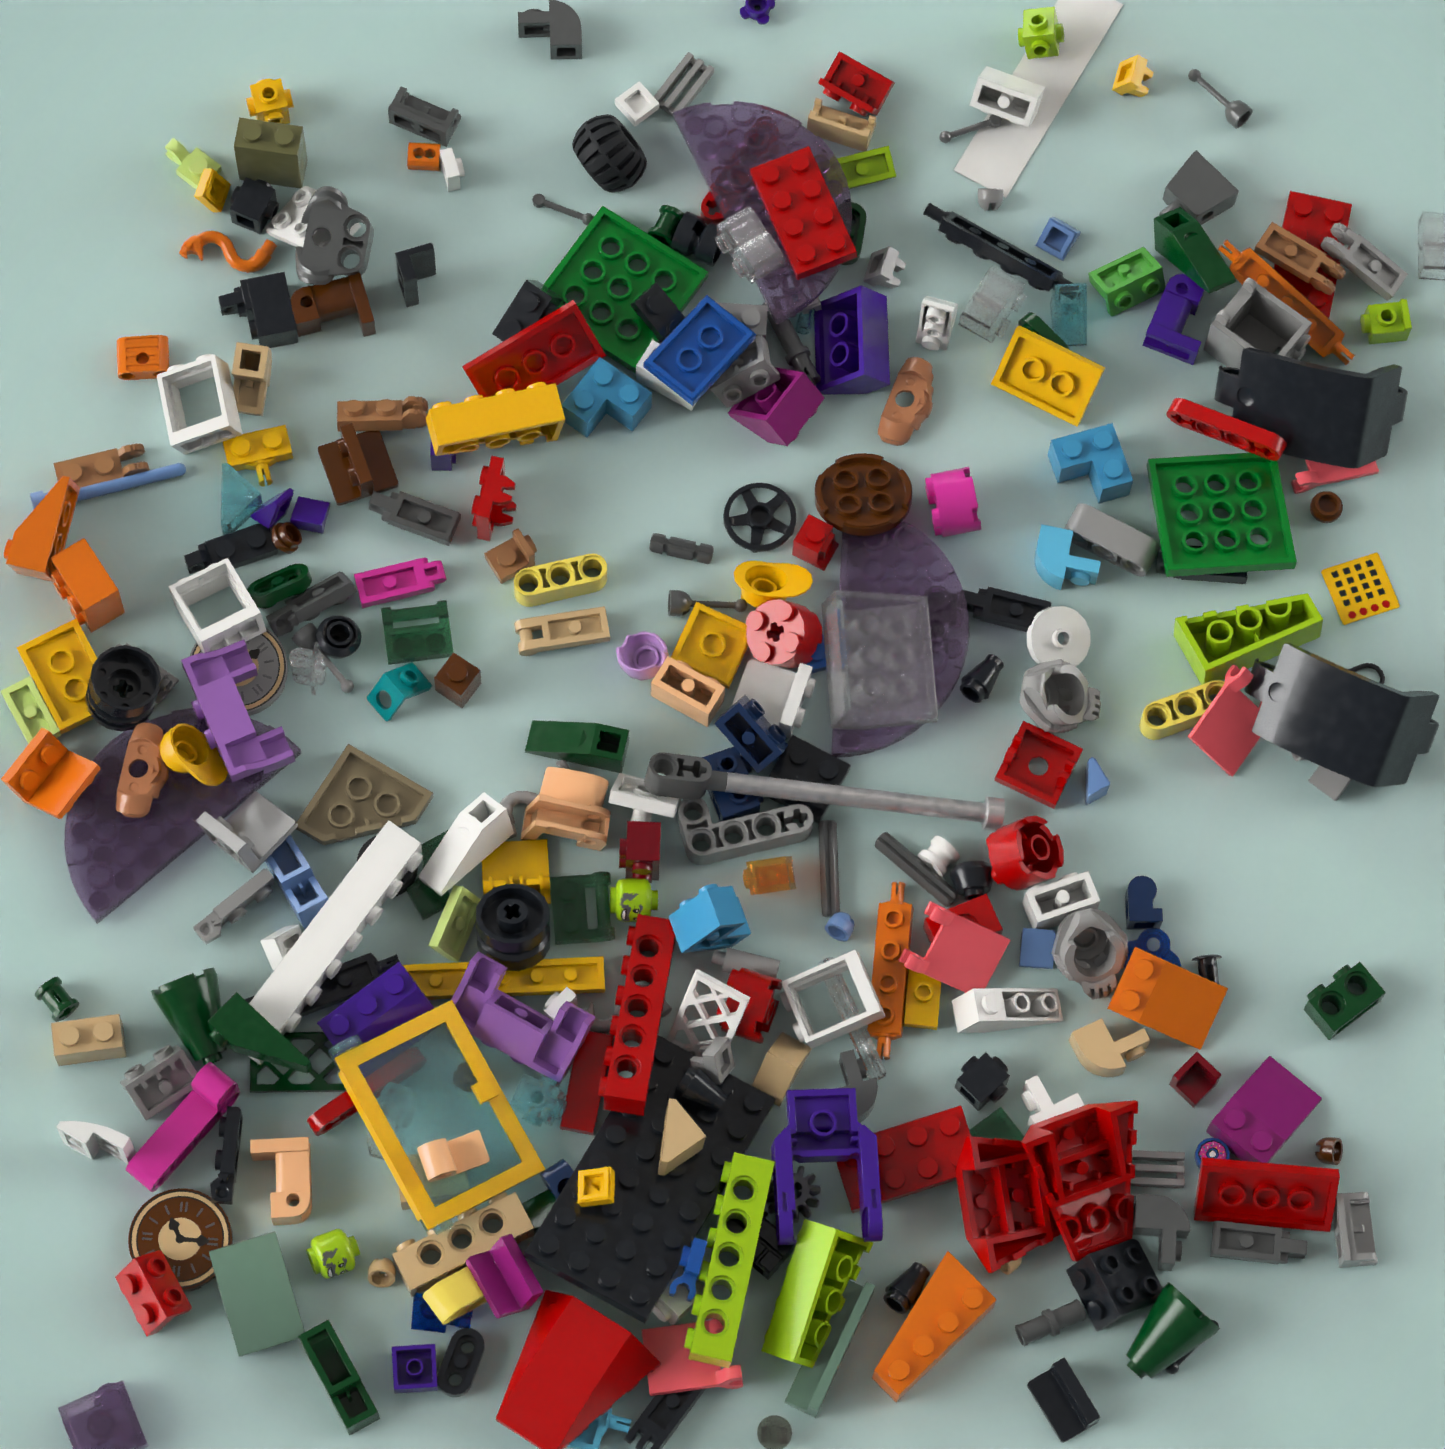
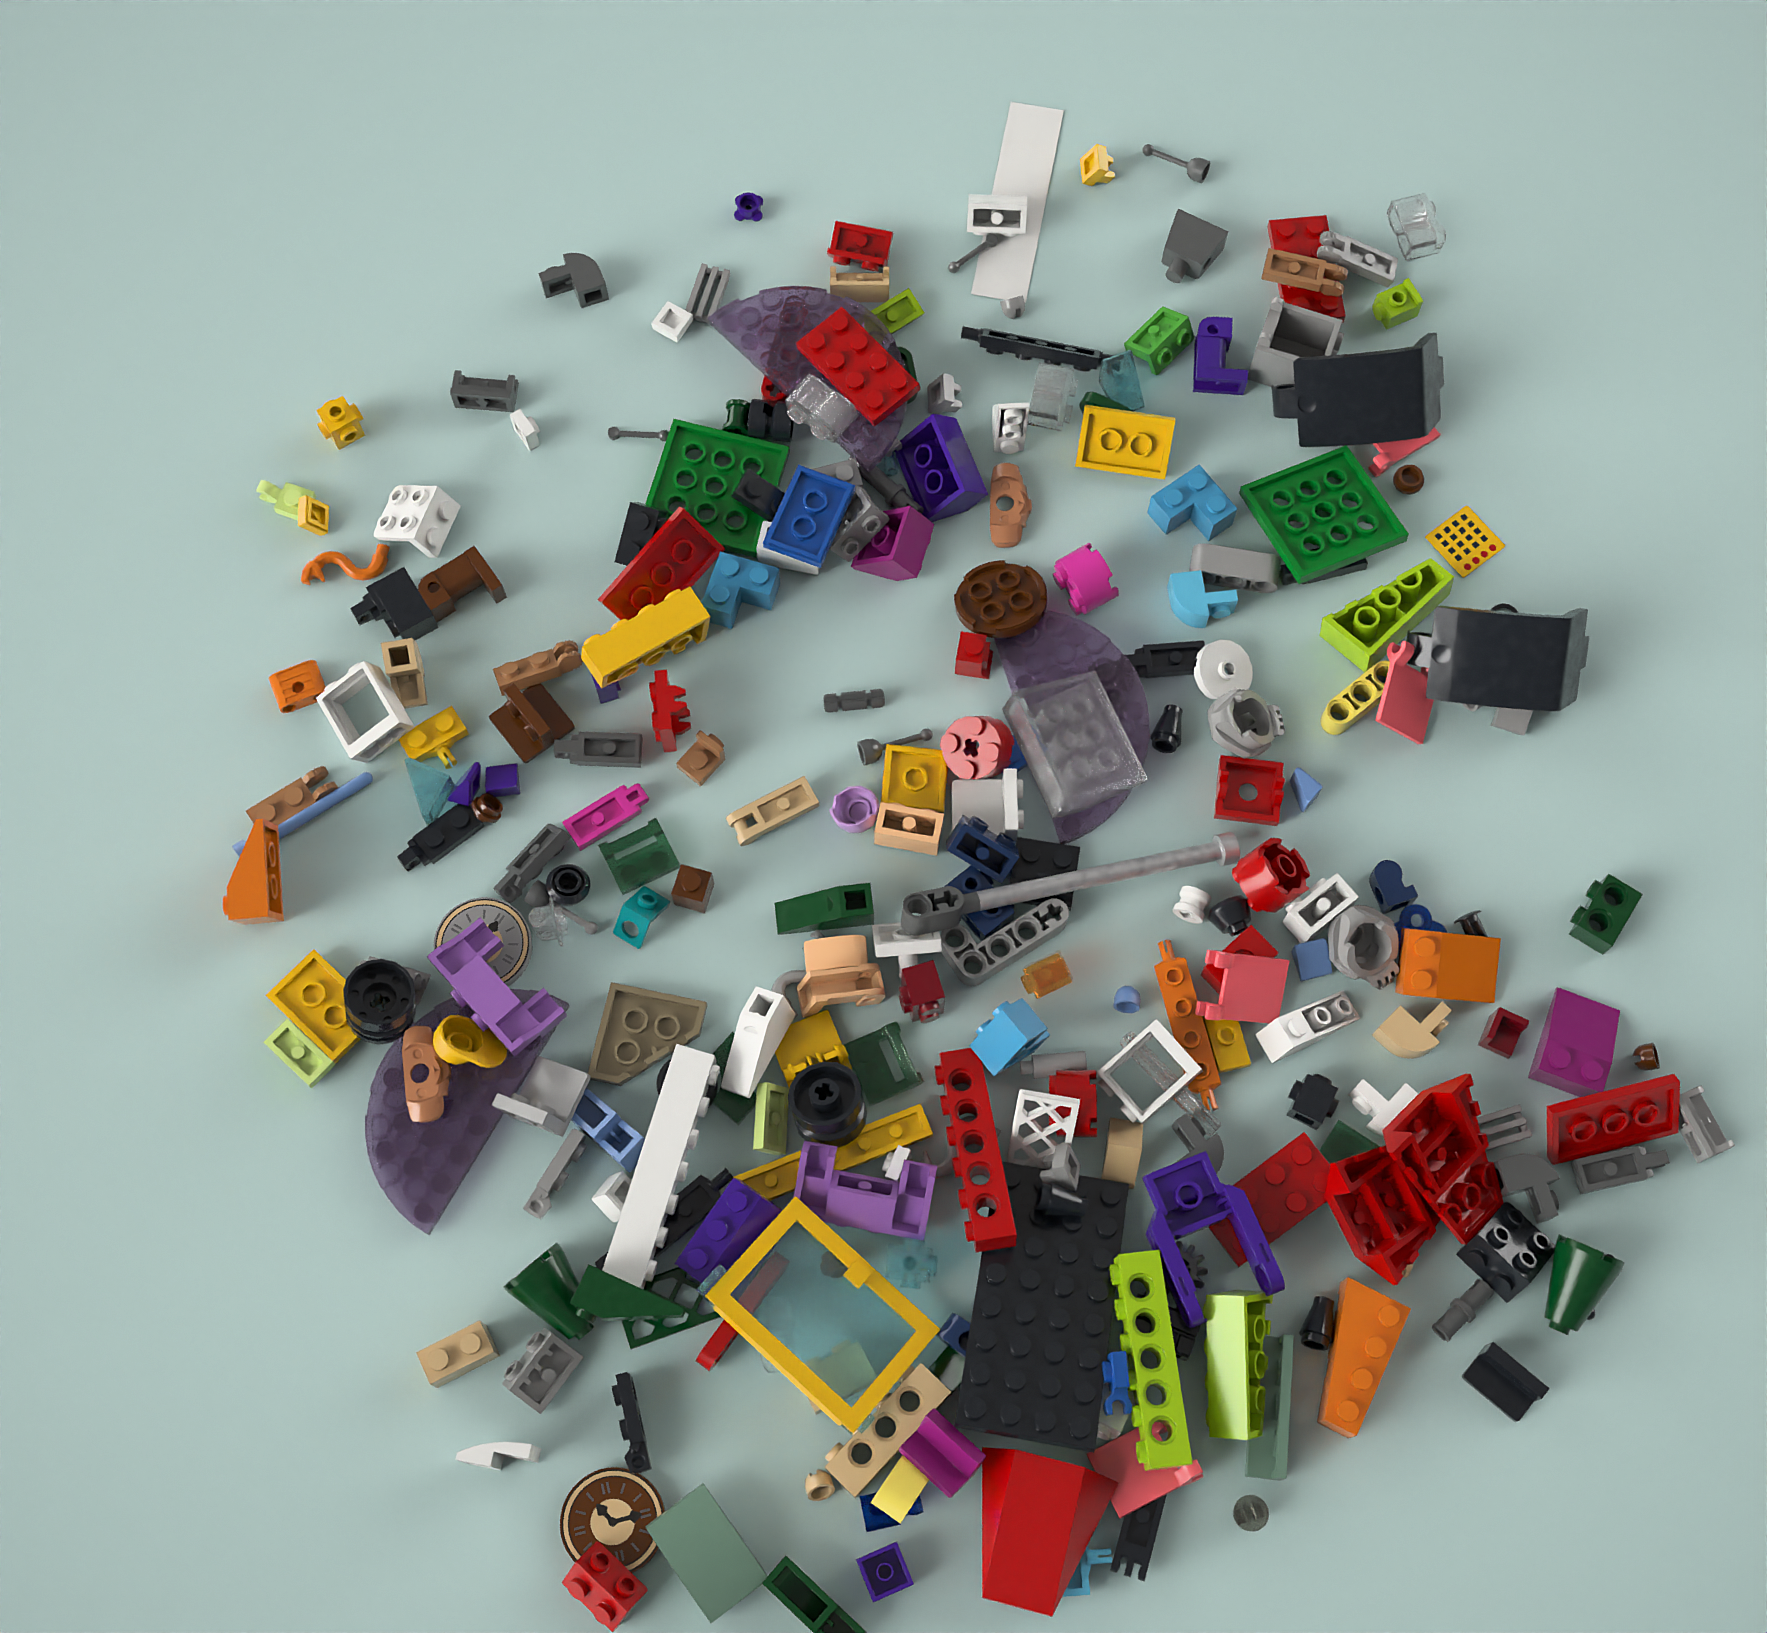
camera: 15 degrees left, 0 degrees up
(50, 775) = (337, 1107): orange bracket -> none
(60, 1009) = (420, 1333): dark green bush -> none
(86, 586) = (312, 915): orange brick -> none
(184, 1127) = (580, 1409): dark pink beam -> none
(232, 629) = (463, 913): white window -> none
(253, 204) = (355, 517): black brick -> none
(270, 152) = (355, 464): olive brick -> none
(280, 585) = (496, 855): dark green plate -> none
(292, 1177) = (700, 1422): light nougat piece -> none
(330, 211) = (428, 498): dark grey piece -> none
(333, 1253) = (766, 1485): lime head -> none
(414, 265) = (521, 524): black panel -> none
(425, 150) = (497, 420): orange piece -> none
(452, 1157) = (851, 1350): light nougat panel -> none
(461, 1363) = (927, 1549): black plate -> none
(571, 568) = (760, 751): light yellow beam -> none
(584, 1084) = (948, 1231): red tile -> none
(596, 1186) = (1000, 1334): yellow tile -> none
(609, 153) = (663, 371): black wheel -> none
(632, 898) = (928, 1039): lime head -> none
(680, 1138) = (1058, 1255): tan slope -> none
(759, 517) = (913, 650): black wheel -> none
(771, 581) = (948, 703): yellow piece -> none
(829, 868) = (1096, 949): dark grey axle -> none
(916, 869) = (1175, 923): dark grey axle -> none
(1041, 33) = (1005, 152): lime brick -> none
(1057, 238) = (1084, 323): medium blue slope -> none
(1190, 249) = (1207, 293): dark green slope -> none
(1211, 1149) = (1542, 1095): tile -> none
(1226, 429) = (1299, 438): red beam -> none
(1324, 334) = (1264, 289): orange plate -> none

